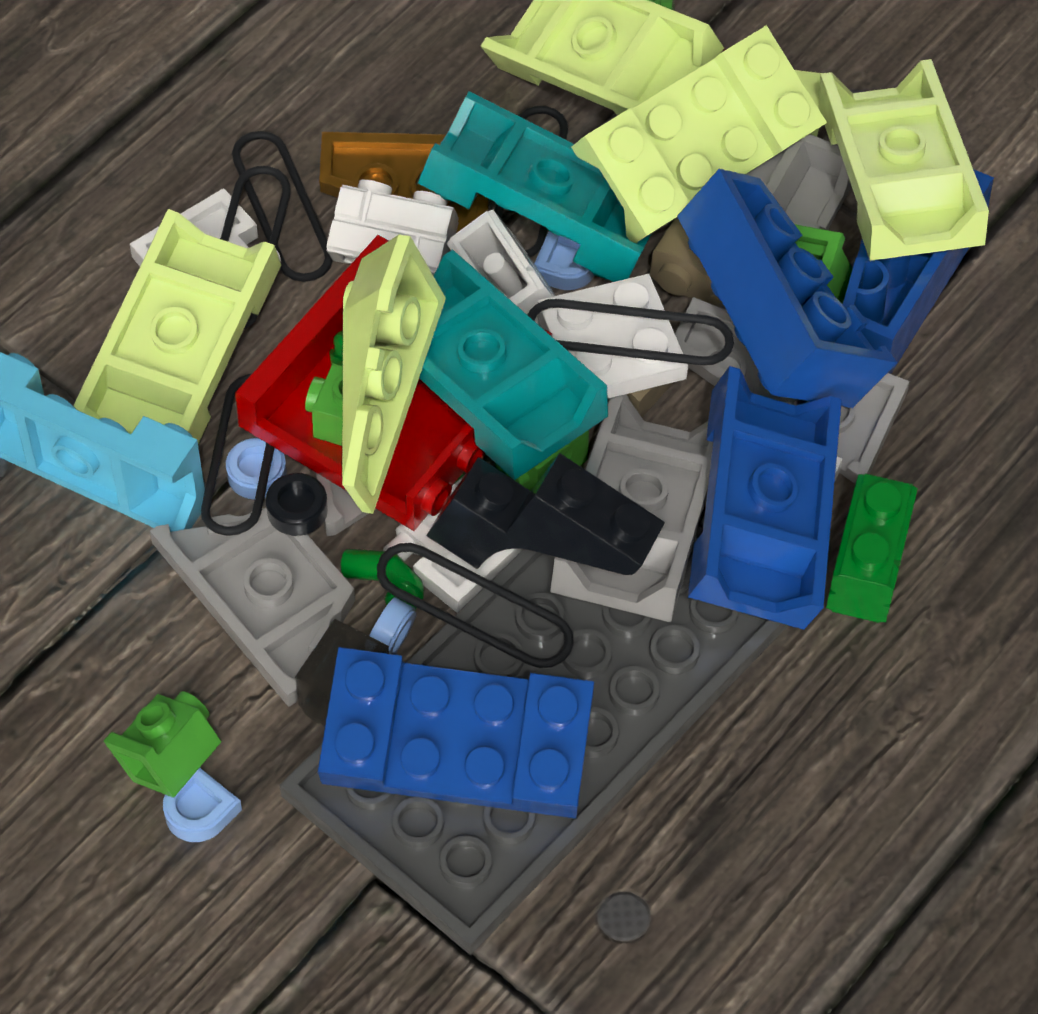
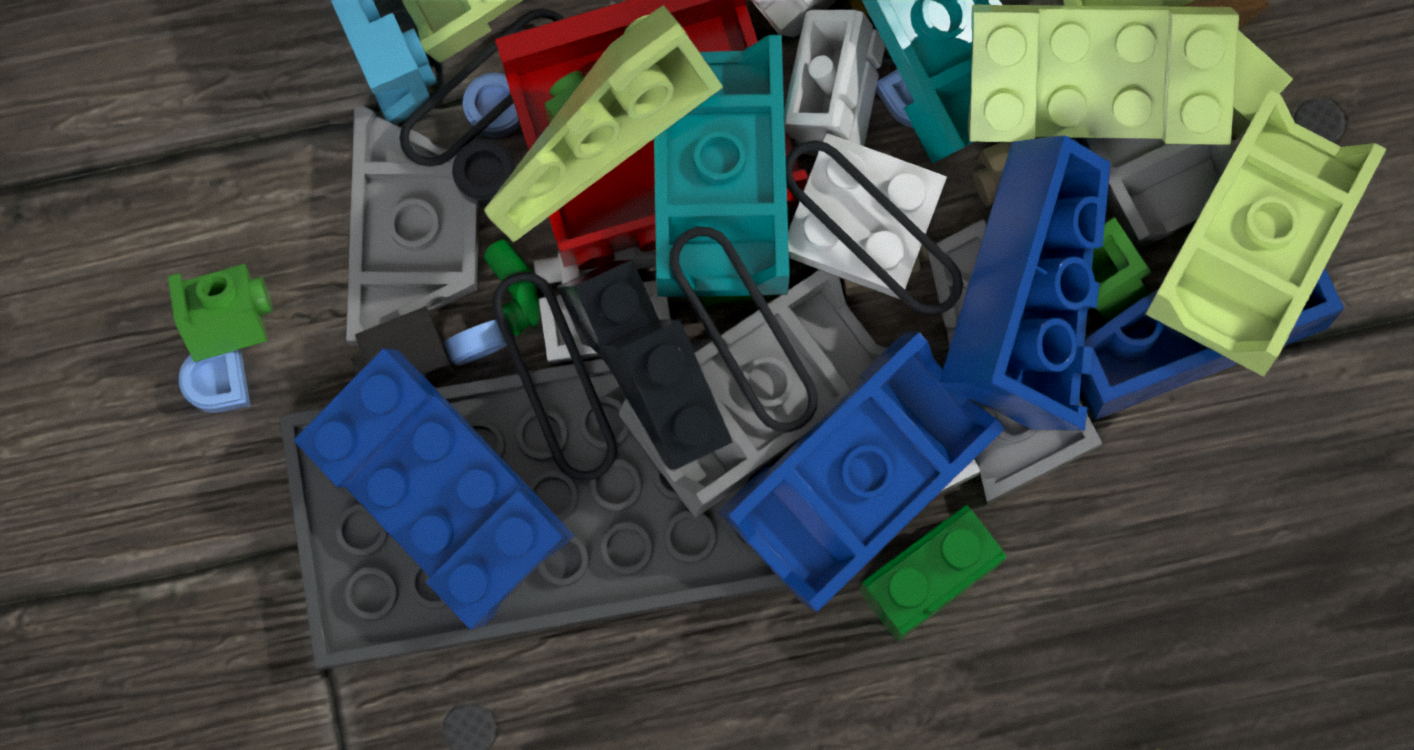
camera: 45 degrees right, 20 degrees up
(609, 426) = (719, 342): none -> black piece

